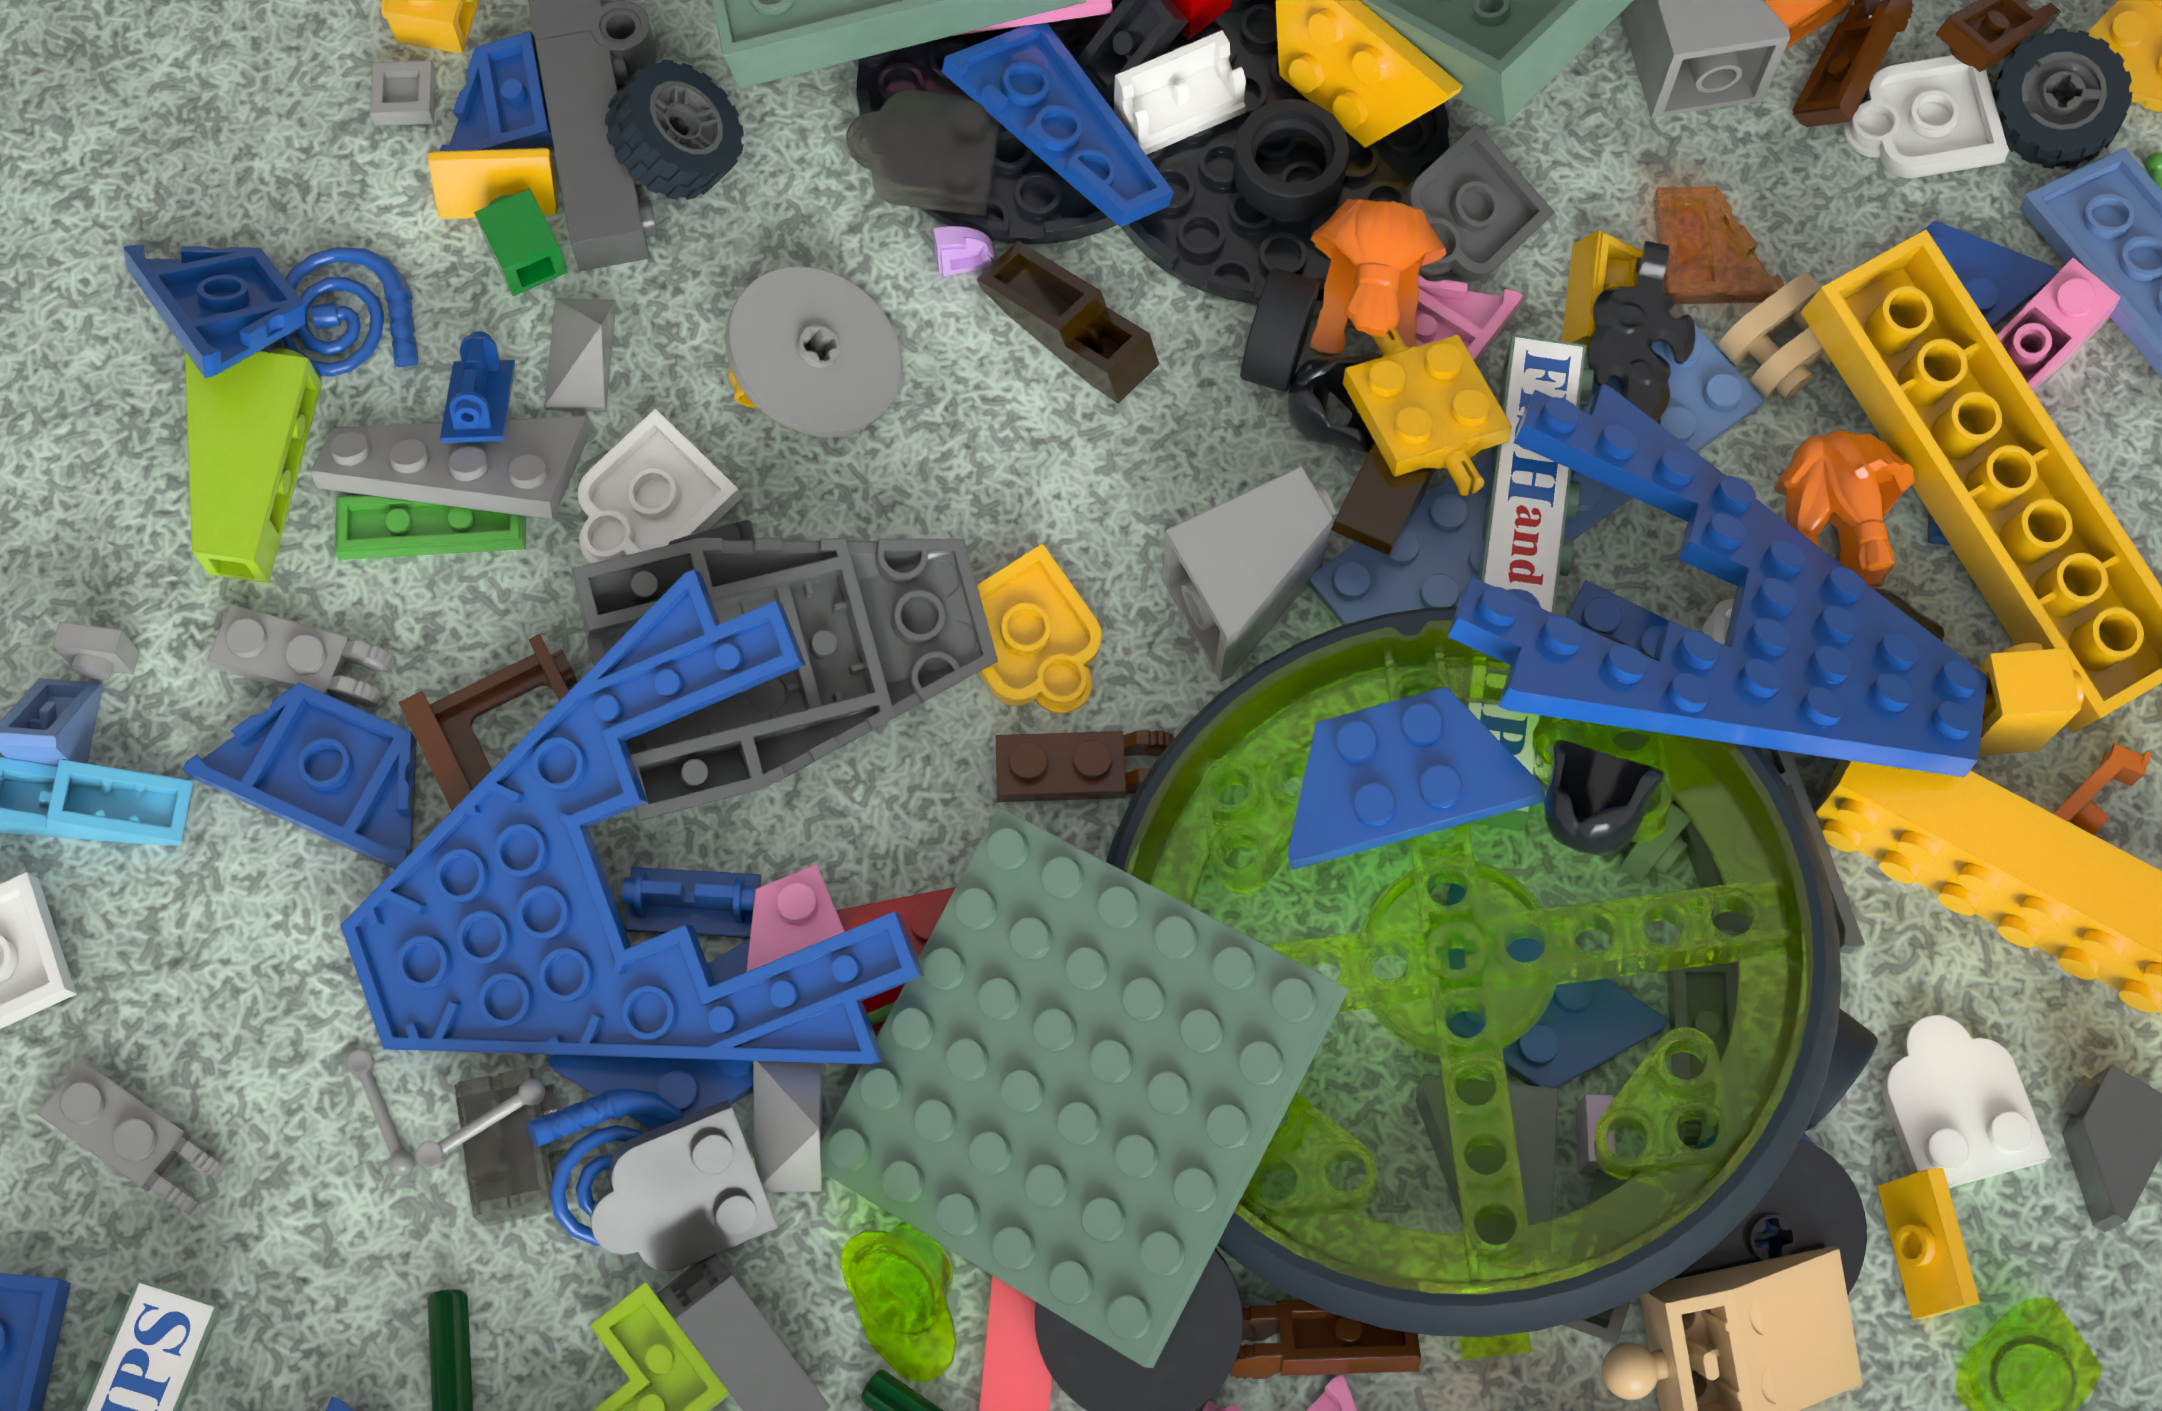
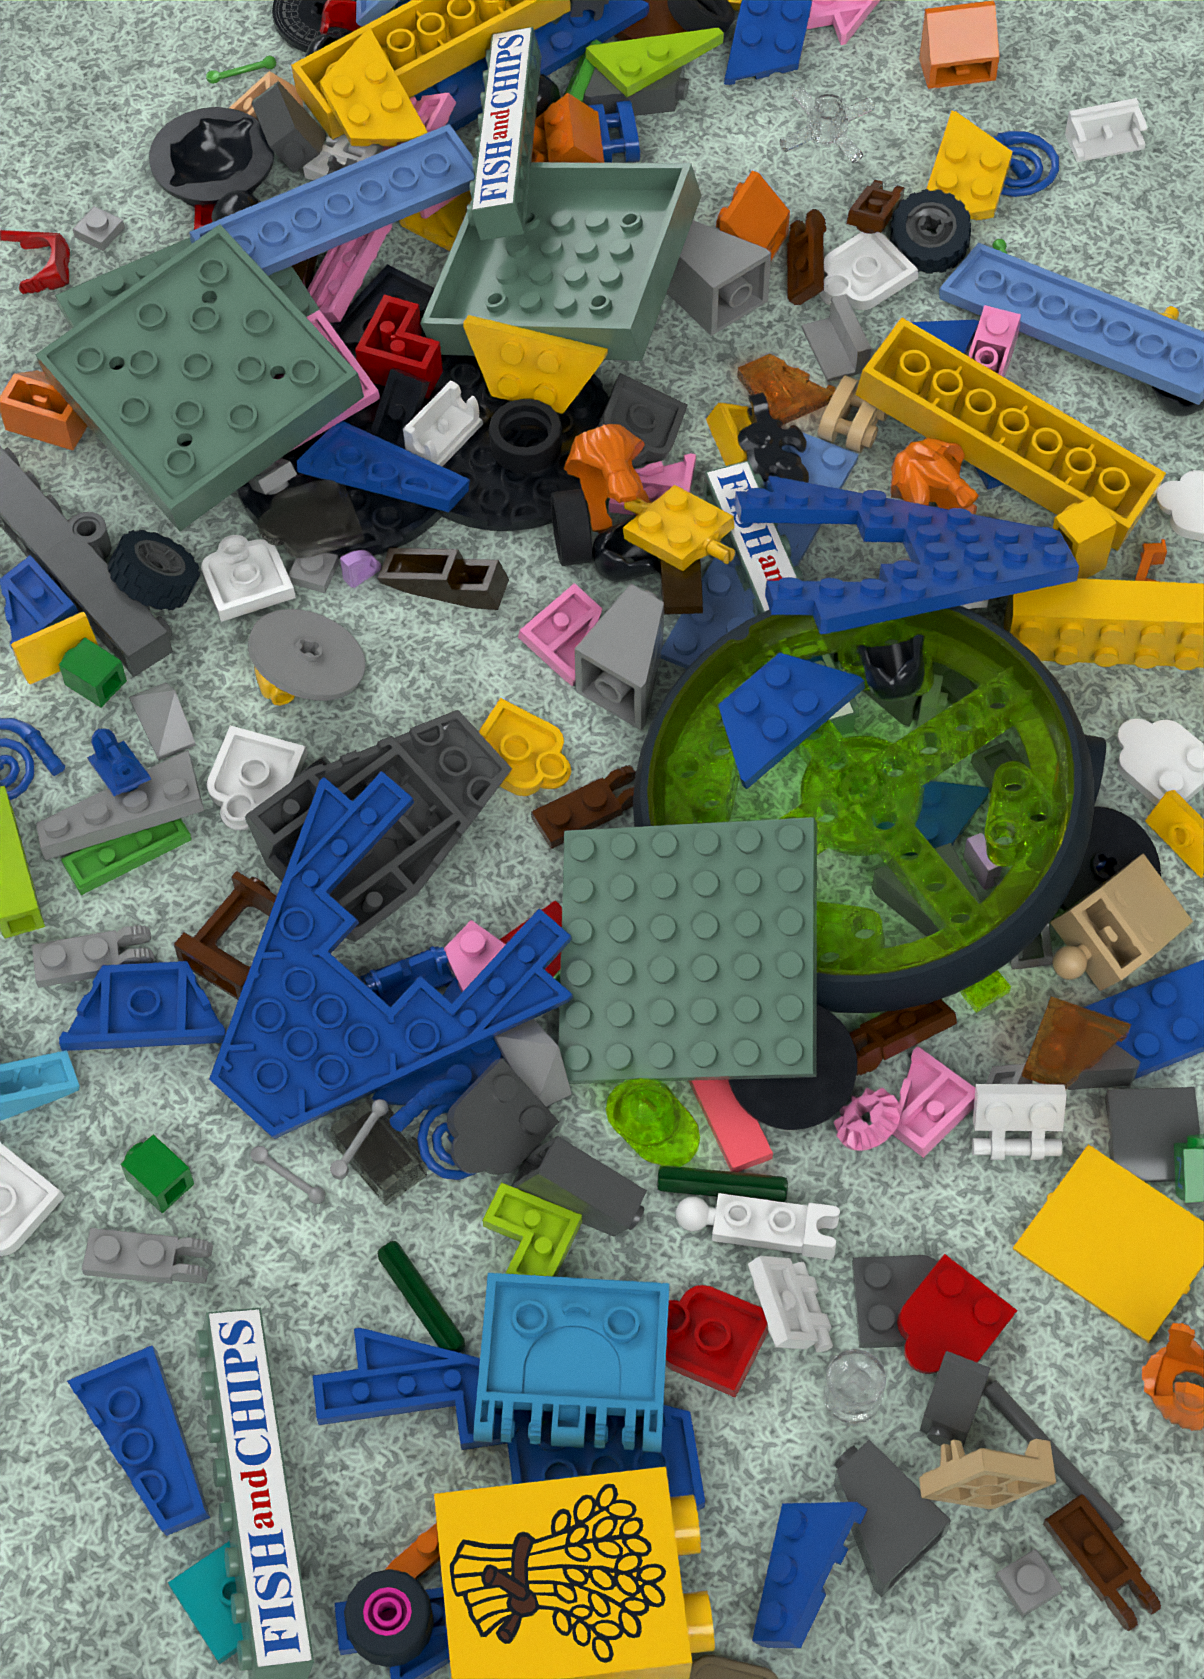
camera: 25 degrees left, 10 degrees down
(204, 1025) = (156, 1173): none -> green brick
(800, 194) = (245, 577): none -> white plate
(898, 228) = (314, 571): none -> light grey plate
(907, 67) = (274, 477): none -> light grey plate
(1190, 475) = (560, 629): none -> bright pink wing
(1829, 212) = (838, 341): none -> light grey panel

